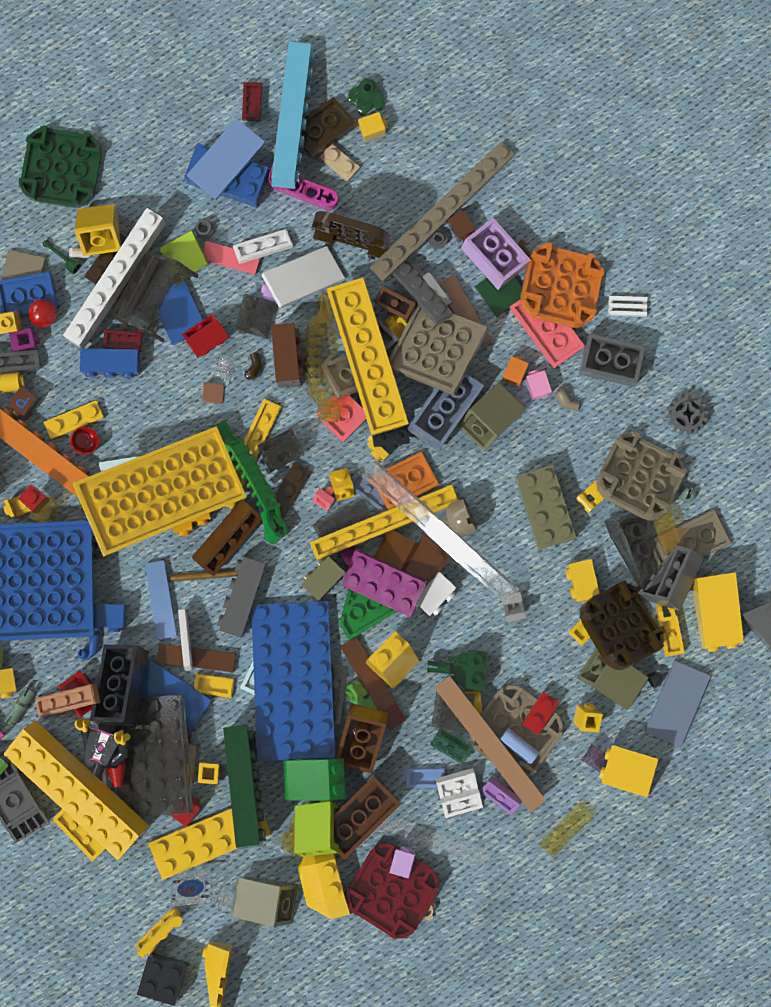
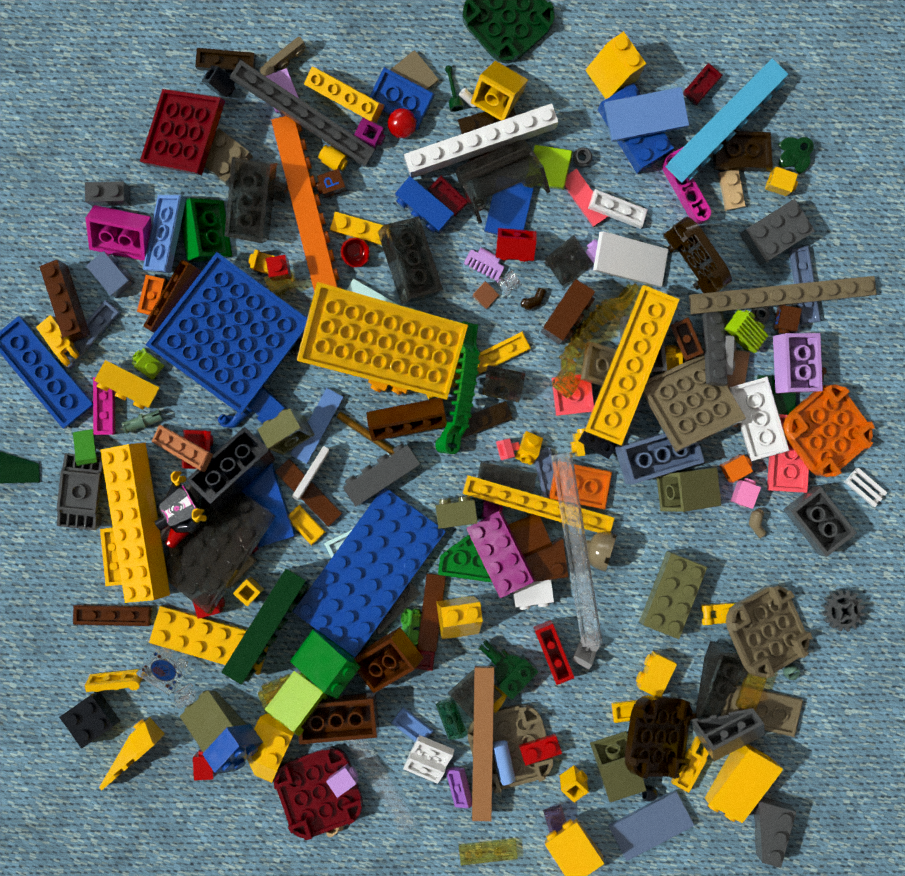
camera: 35 degrees right, 5 degrees up
(115, 882) = (112, 615): none -> reddish brown tile
(132, 412) = (410, 260): none -> clear smoke brick
(139, 622) = (285, 431): none -> olive brick
(174, 141) = (616, 66): none -> yellow slope
(192, 364) = (487, 259): none -> lavender piece
(284, 941) = (201, 768): none -> red brick
(294, 906) = (232, 748): none -> blue brick
(399, 167) = (777, 232): none -> dark grey brick
(436, 260) = (747, 331): none -> lime brick
(445, 182) = (803, 273): none -> sand blue tile
(488, 627) = (553, 652): none -> red brick
(504, 320) = (762, 426): none -> white tile

